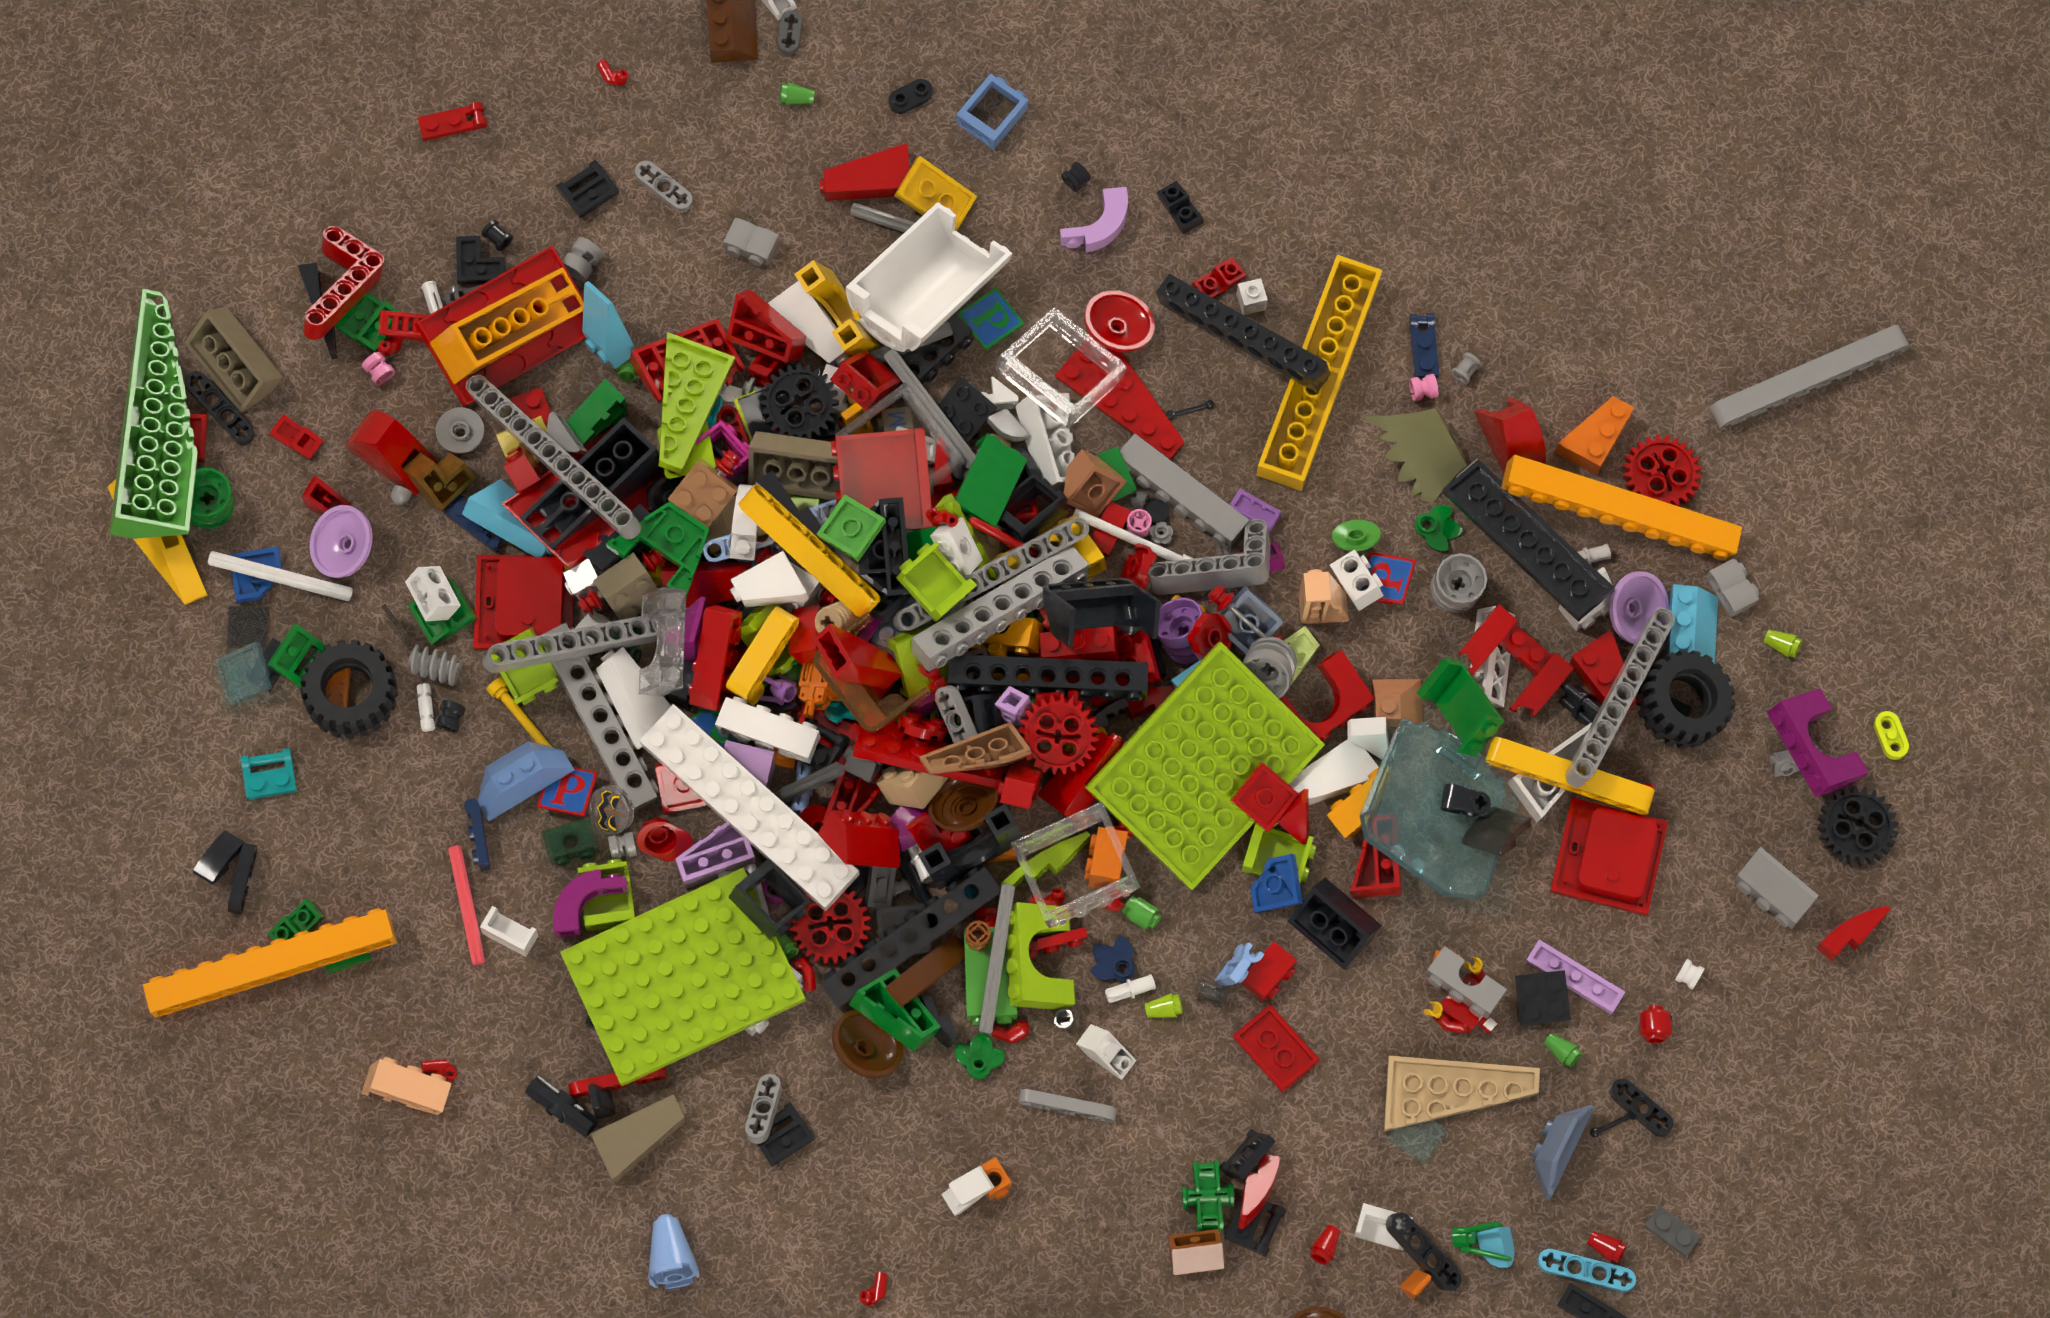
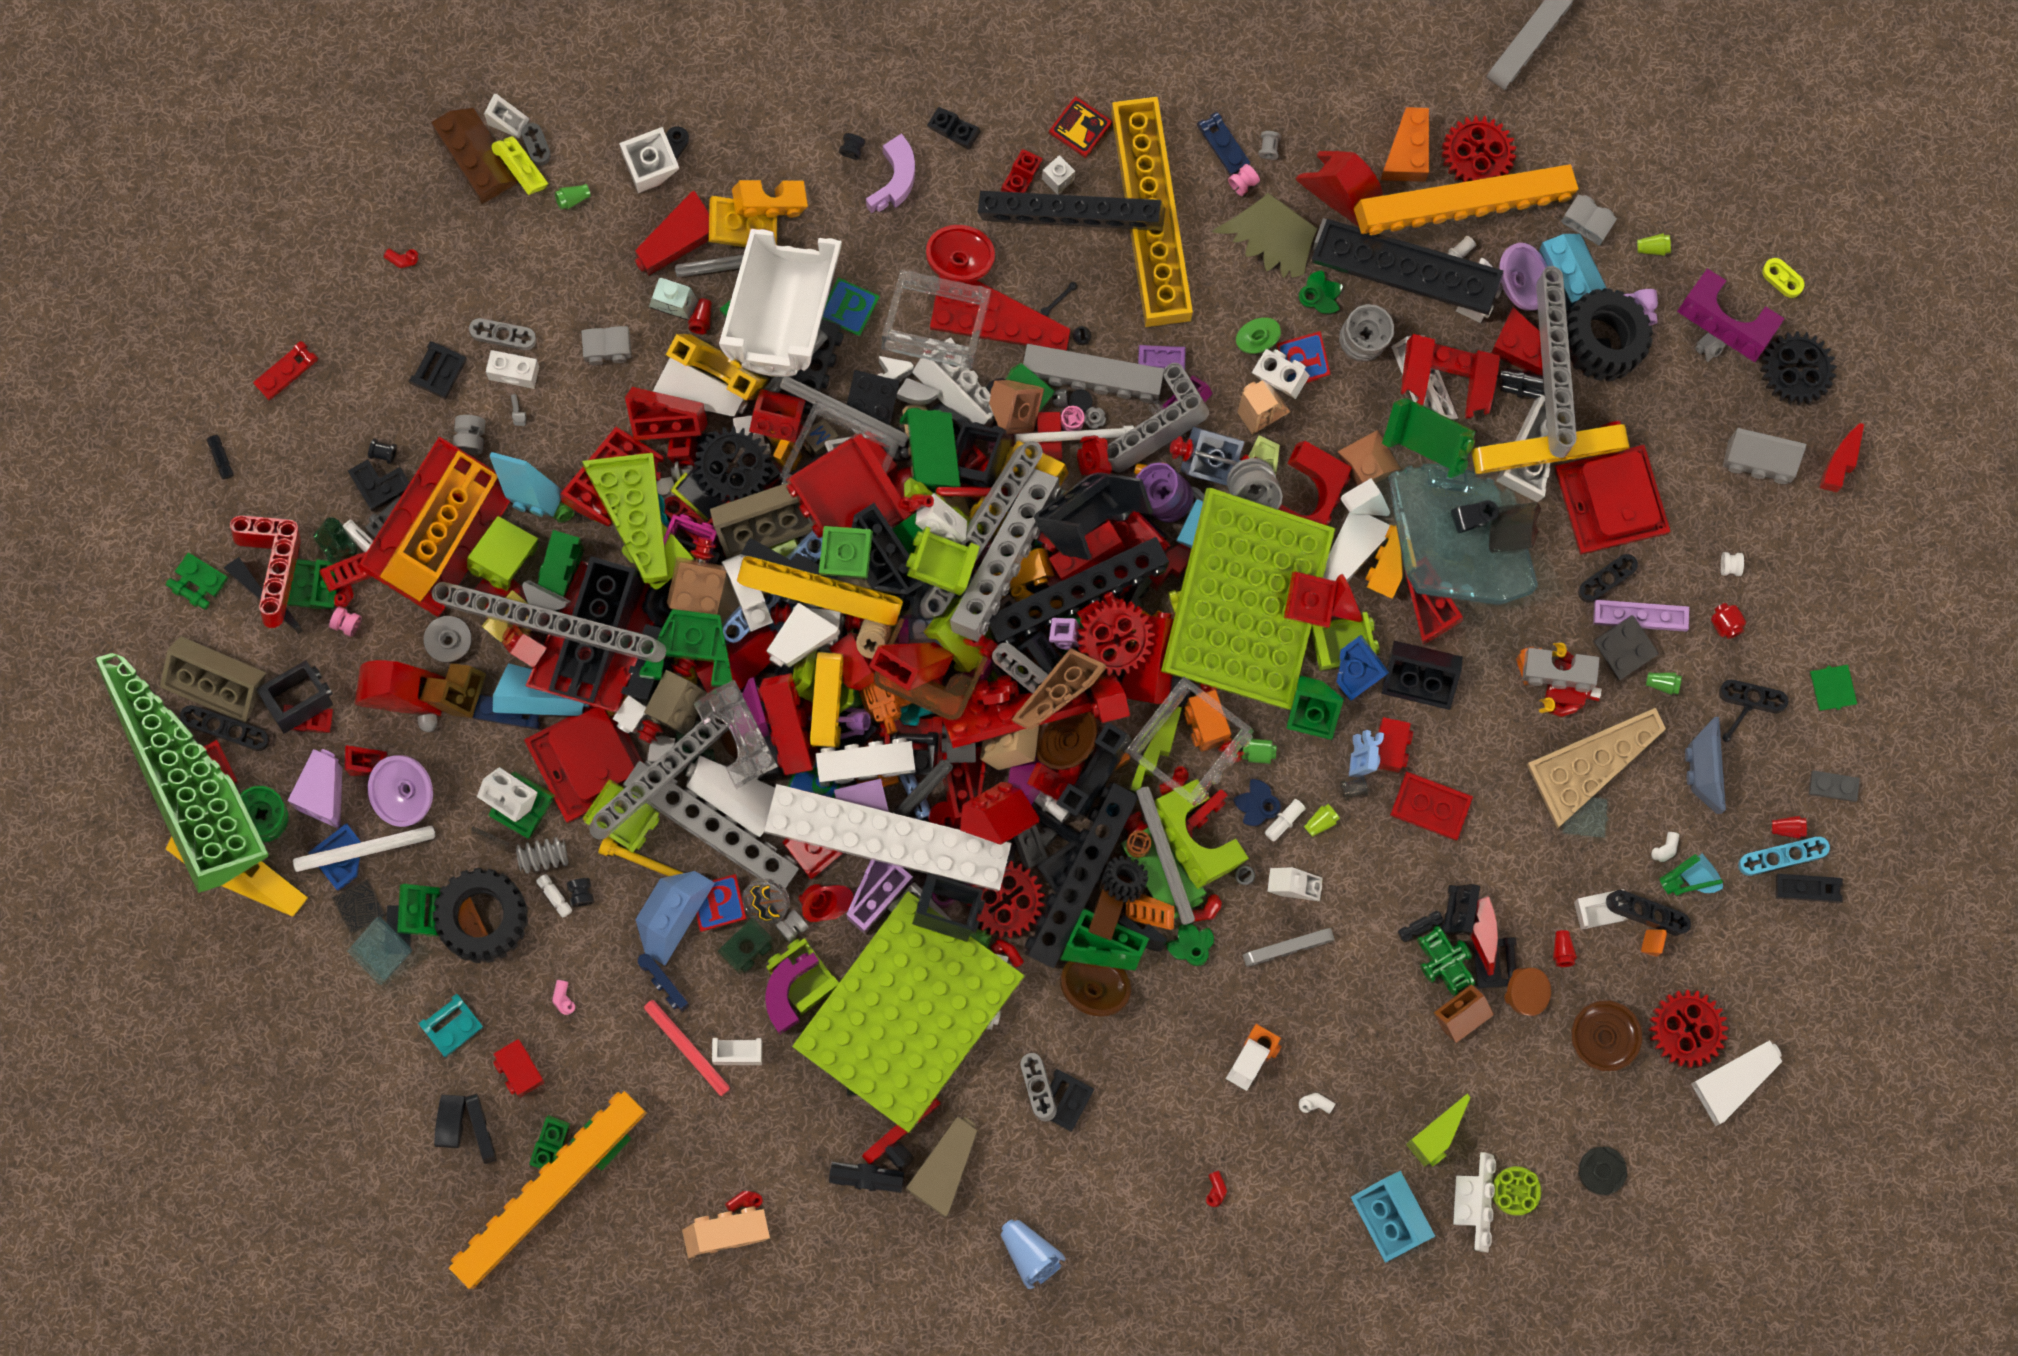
camera: 30 degrees left, 5 degrees up
(271, 502) = (320, 788): none -> lavender slope
(275, 262) = (199, 574): none -> green plate
(296, 426) = (305, 709): none -> black window
(305, 842) = (518, 1068): none -> red brick
(351, 168) = (220, 457): none -> black axle
(378, 802) = (561, 1000): none -> bright pink arm
(409, 290) = (333, 540): none -> clear green piece
(550, 378) = (501, 553): none -> lime panel
(635, 266) = (519, 418): none -> light grey hand
(653, 221) = (512, 369): none -> white brick
(764, 44) = (520, 165): none -> neon yellow plate
(831, 228) = (672, 299): none -> light aqua torso
(849, 262) = (701, 317): none -> red cone
(882, 96) = (649, 159): none -> white slope
(953, 1001) = (1136, 912): none -> orange slope
(954, 179) = (752, 201): none -> light orange arch
(954, 952) = (1131, 870): none -> black tyre
(981, 130) = (749, 146): medium blue window -> none
(1012, 1259) = (1315, 1101): none -> white arm
(1197, 455) = (1077, 335): none -> black hinge
(1200, 634) = (1191, 486): red plate -> none
(1202, 1152) = (1420, 926): none -> black axle
(1214, 900) = (1314, 708): none -> green slope
(1269, 1264) = (1528, 991): none -> dark orange tile
(1298, 264) = (1080, 127): none -> tile
(1476, 1206) = (1667, 851): none -> white arm
(1544, 922) = (1608, 569): none -> black beam
(1724, 1140) = (1833, 687): none -> green piece
(1745, 692) = (1649, 302): none -> lavender piece

